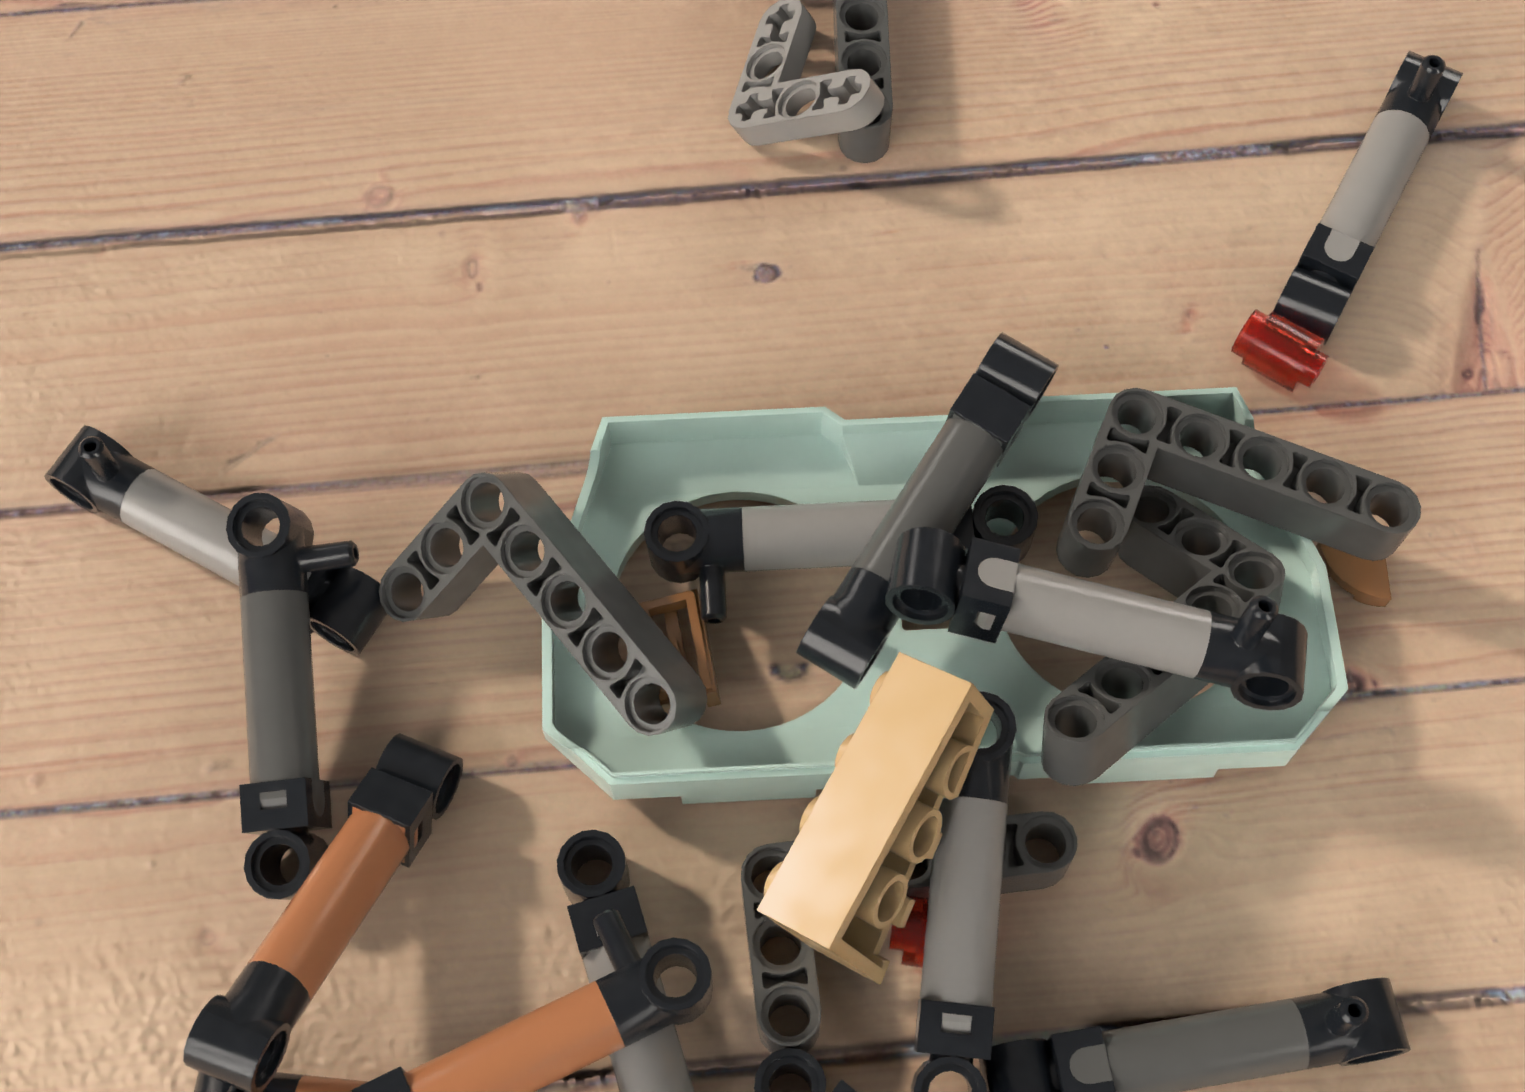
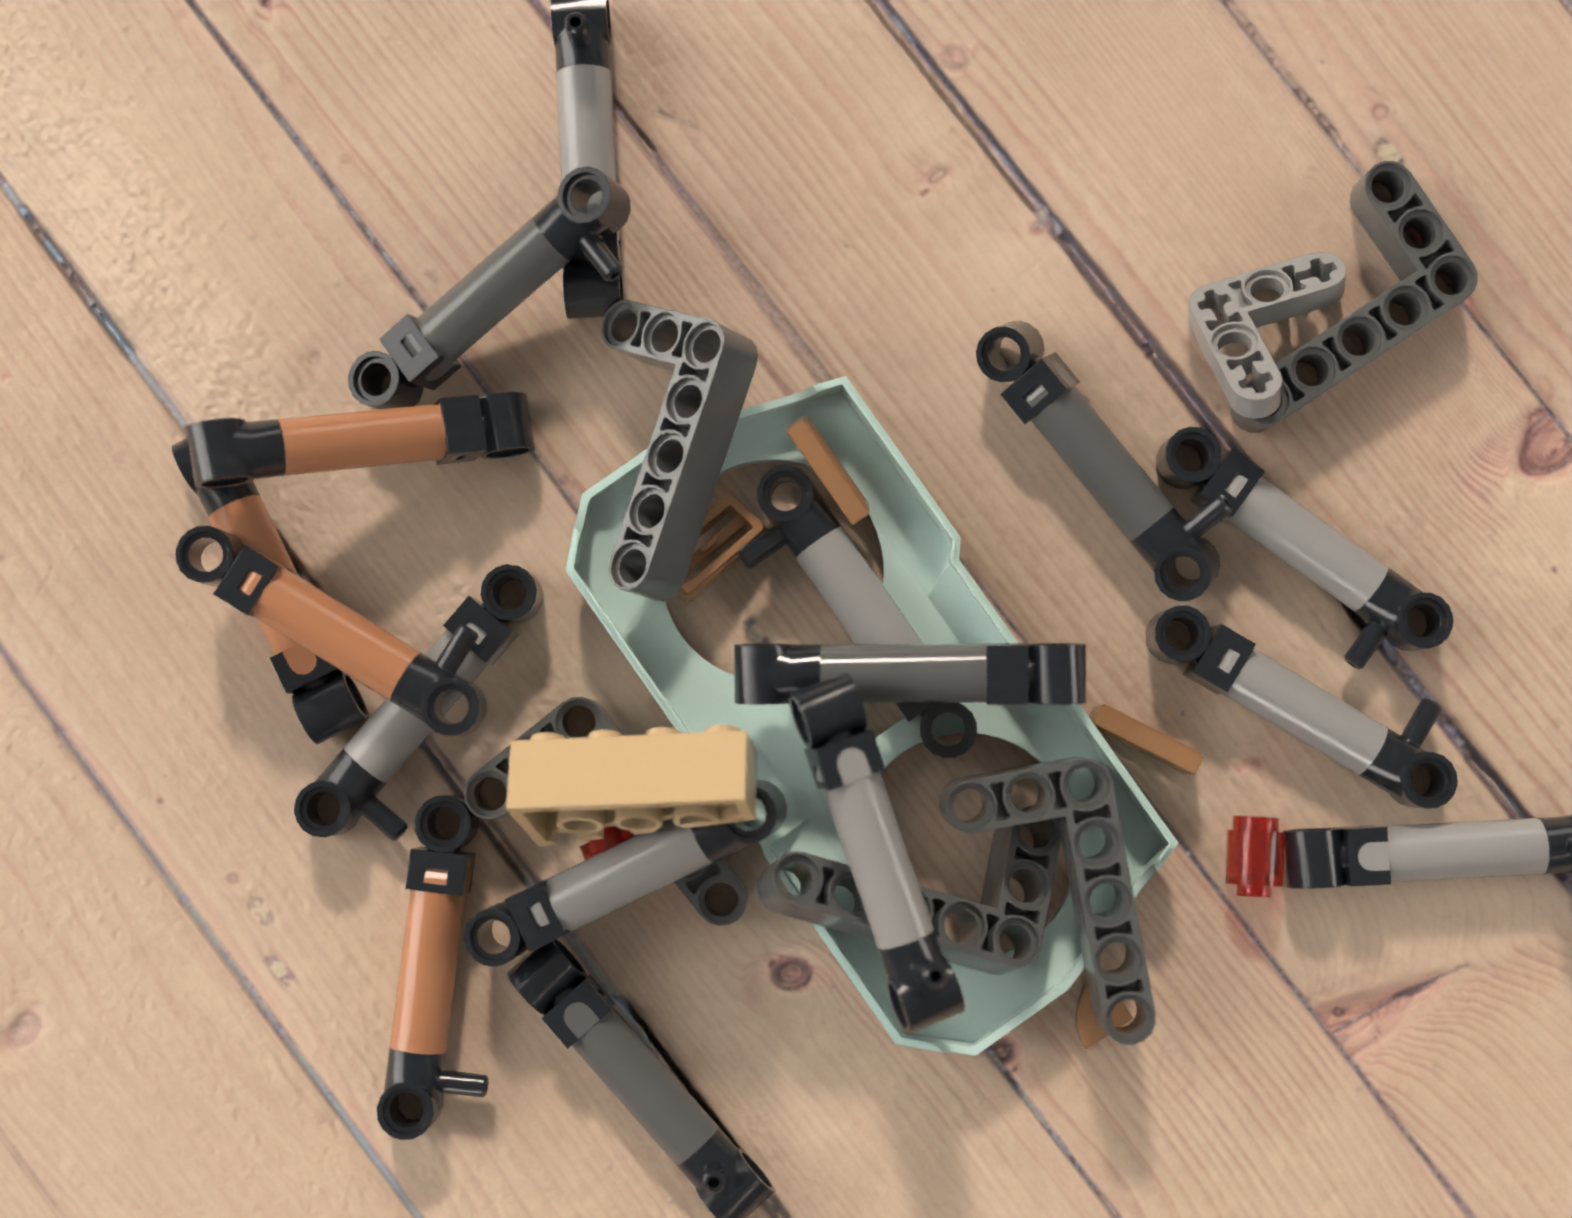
camera: 60 degrees right, 20 degrees up
(667, 482) = (829, 469): none -> medium nougat tile
(836, 268) = (1048, 398): none -> piece
(929, 184) = (1308, 546): none -> piece
(1084, 273) = (1233, 667): none -> piece
(1130, 368) = (1146, 739): none -> medium nougat tile

